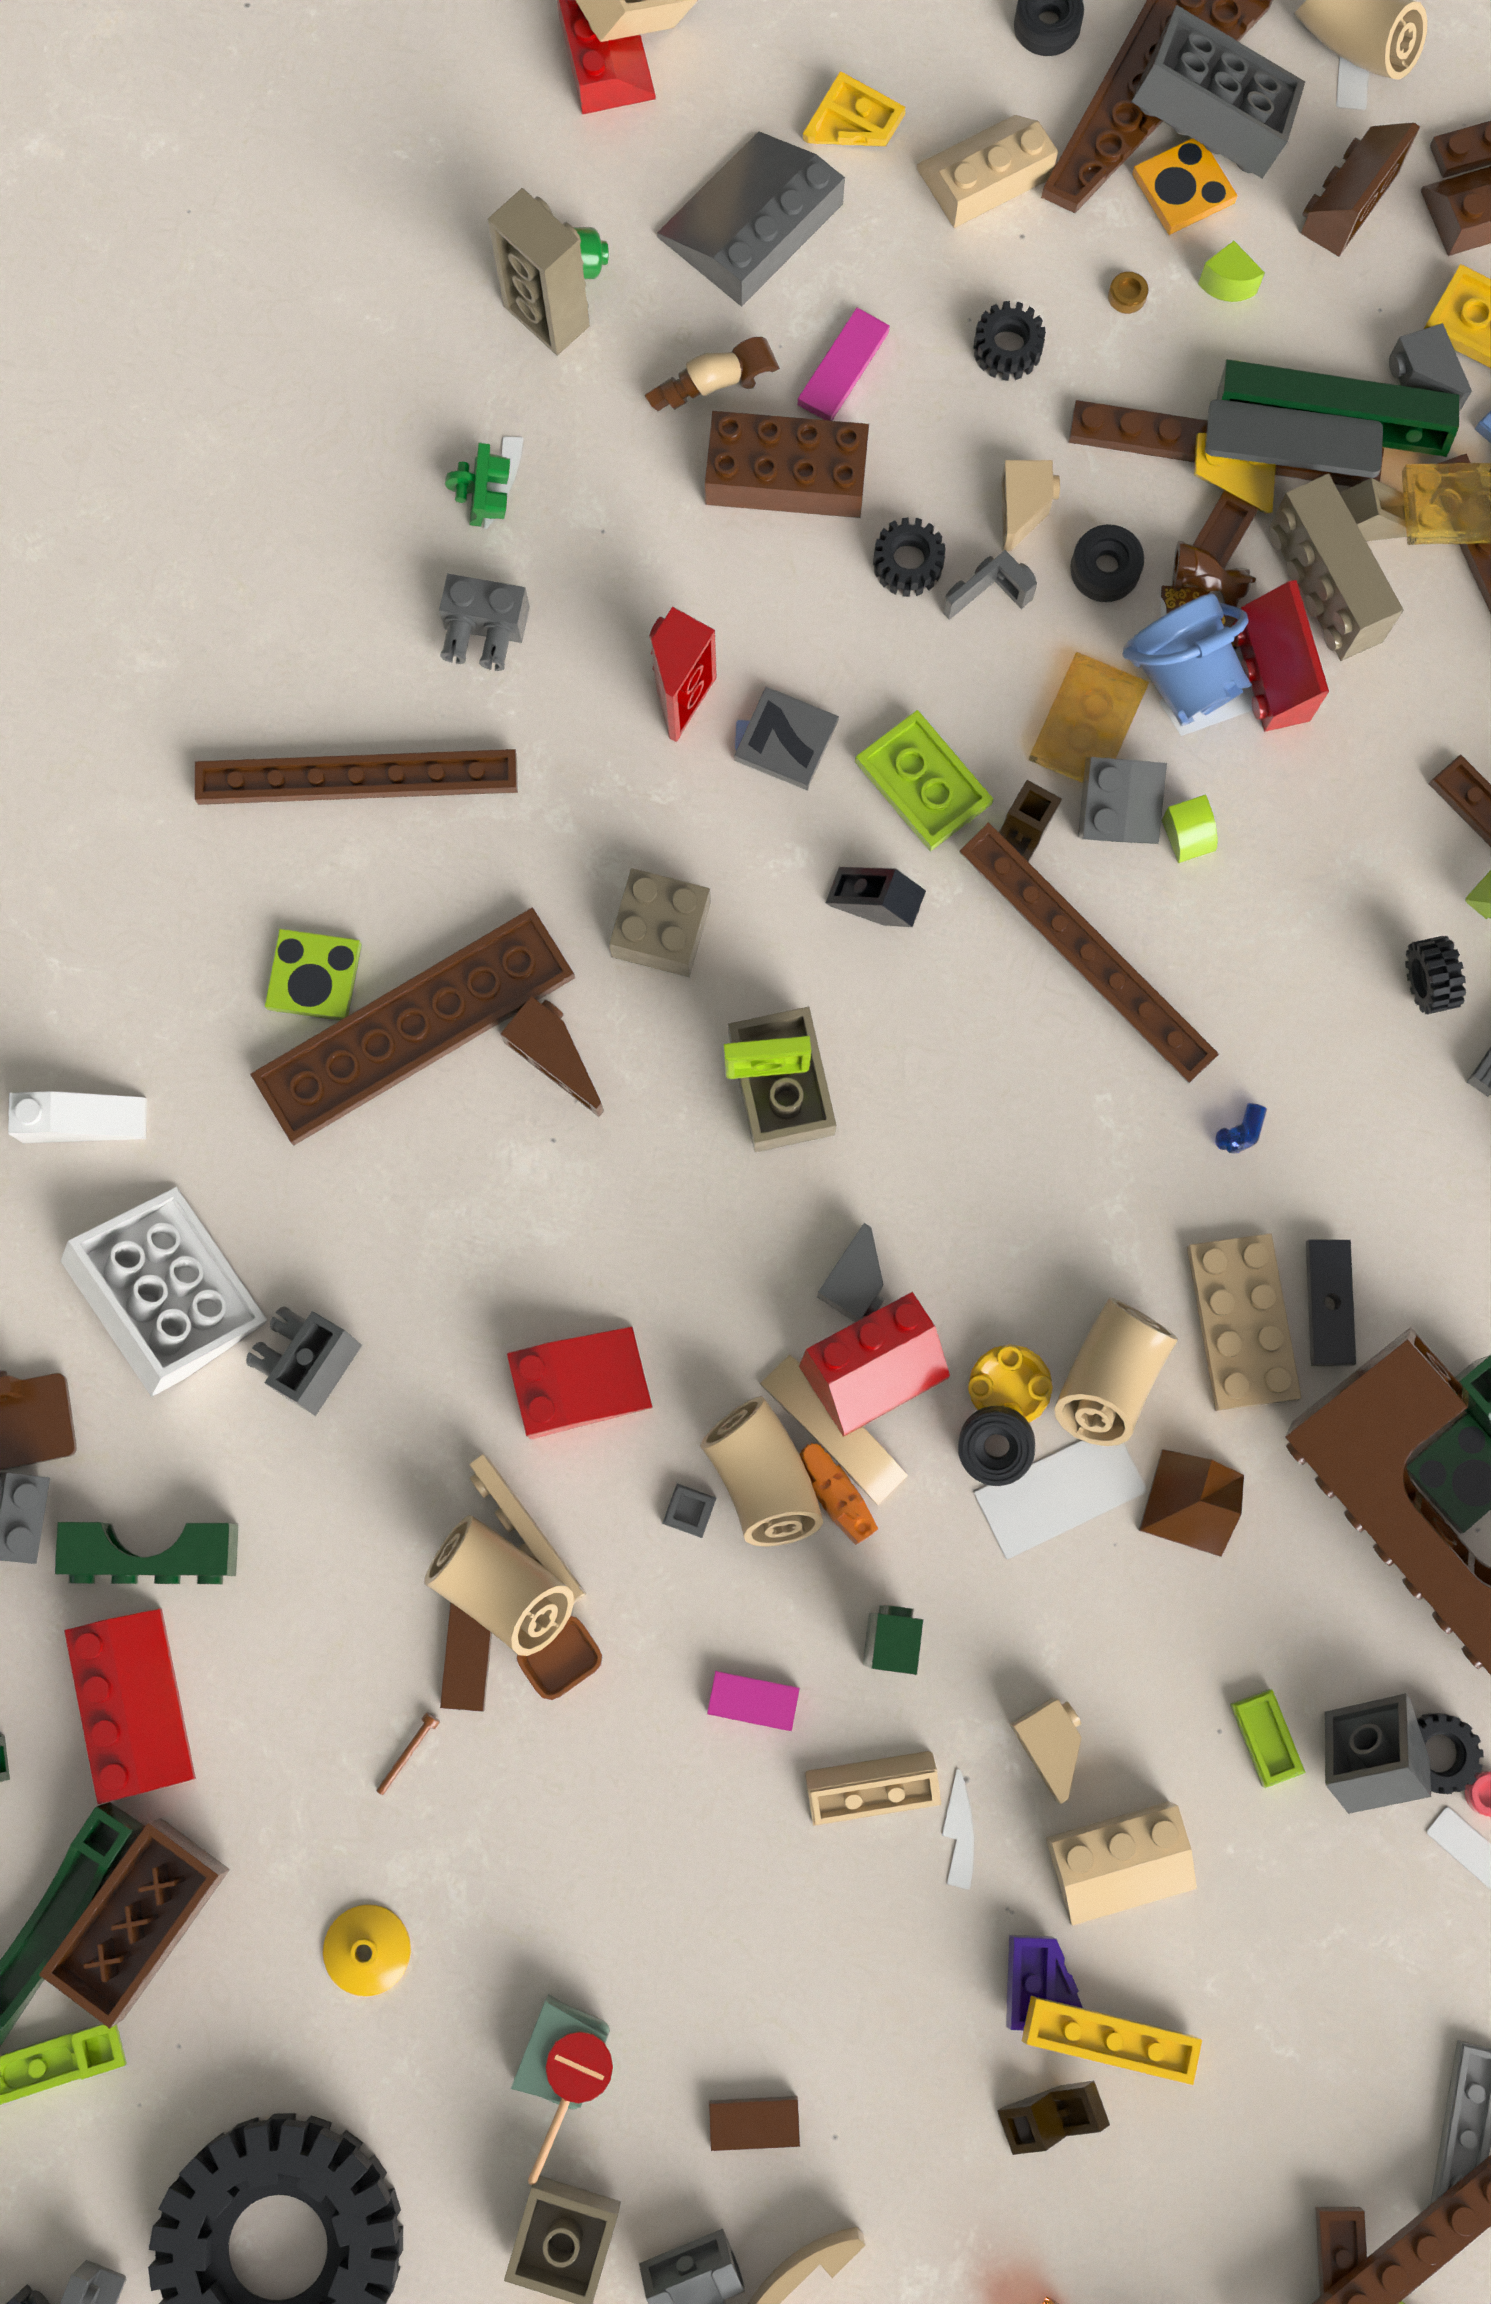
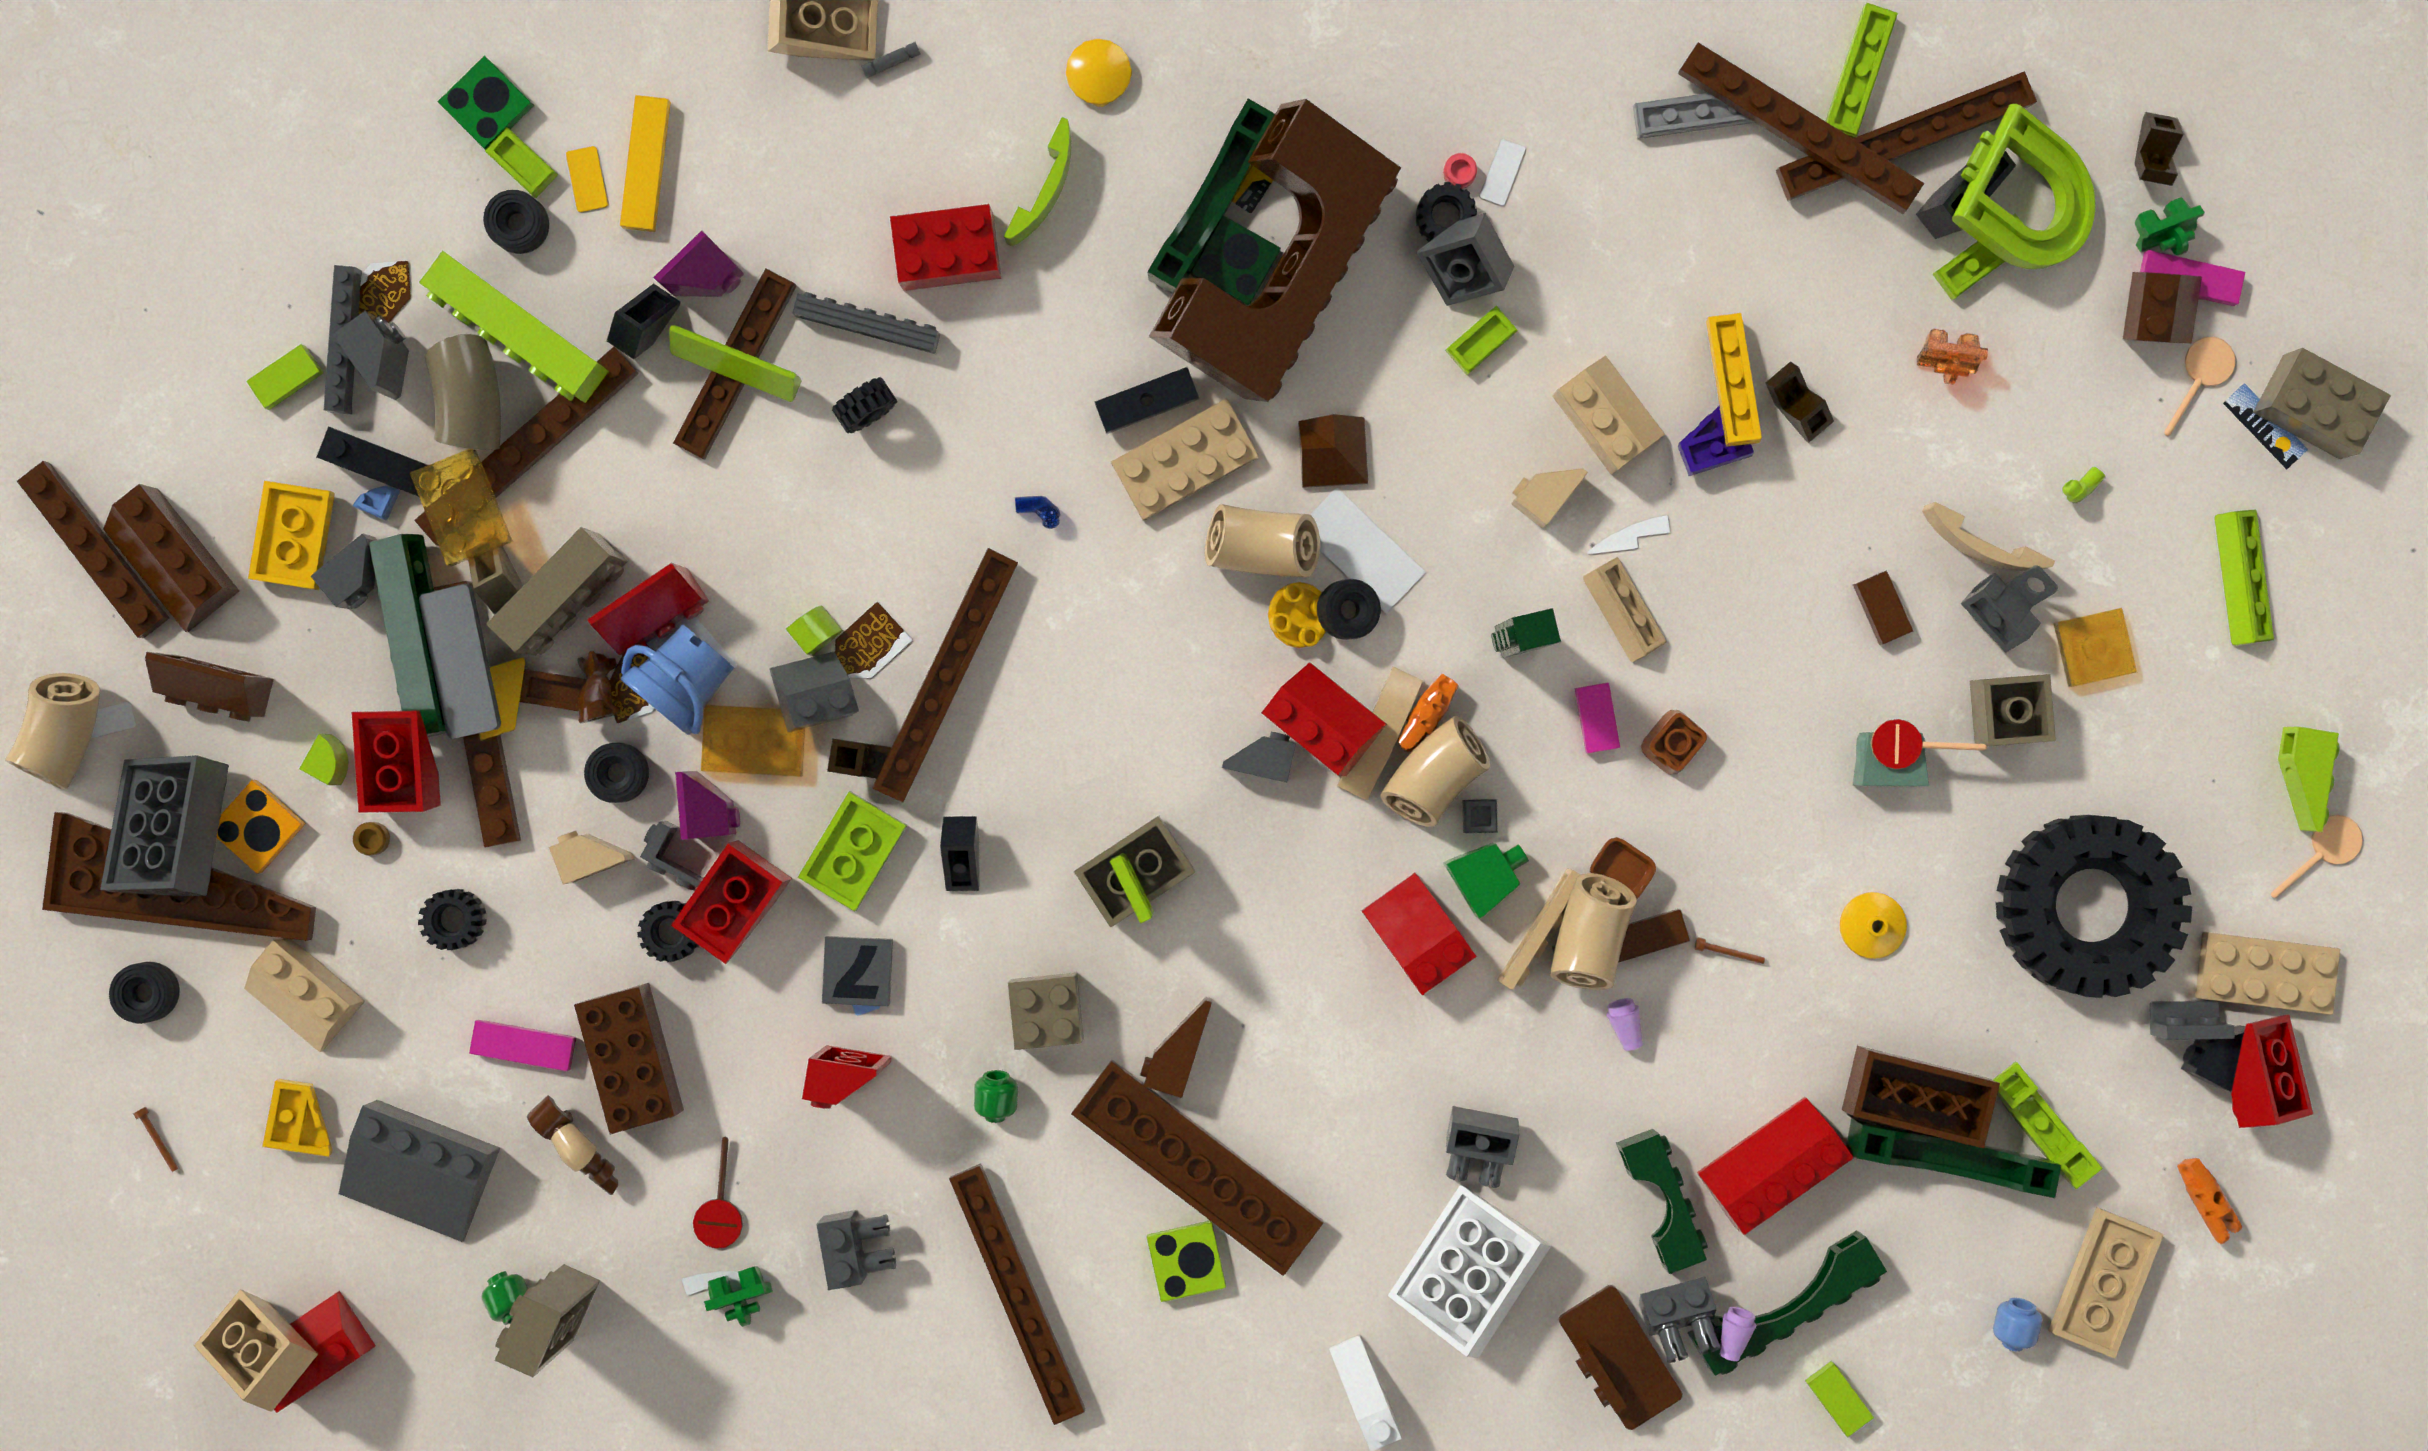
camera: 115 degrees left, 10 degrees up
(374, 1590) = (1626, 1023): none -> lavender cone
(571, 495) = (717, 1220): none -> red piece
(586, 833) = (995, 1096): none -> green head
(616, 1488) = (1486, 875): none -> green torso
(688, 1785) = (1673, 742): none -> dark orange piece
(920, 629) = (731, 900): none -> red slope
(1036, 635) = (704, 808): none -> magenta slope
(1152, 886) = (870, 643): none -> sticker
(1204, 335) = (394, 762): none -> red slope

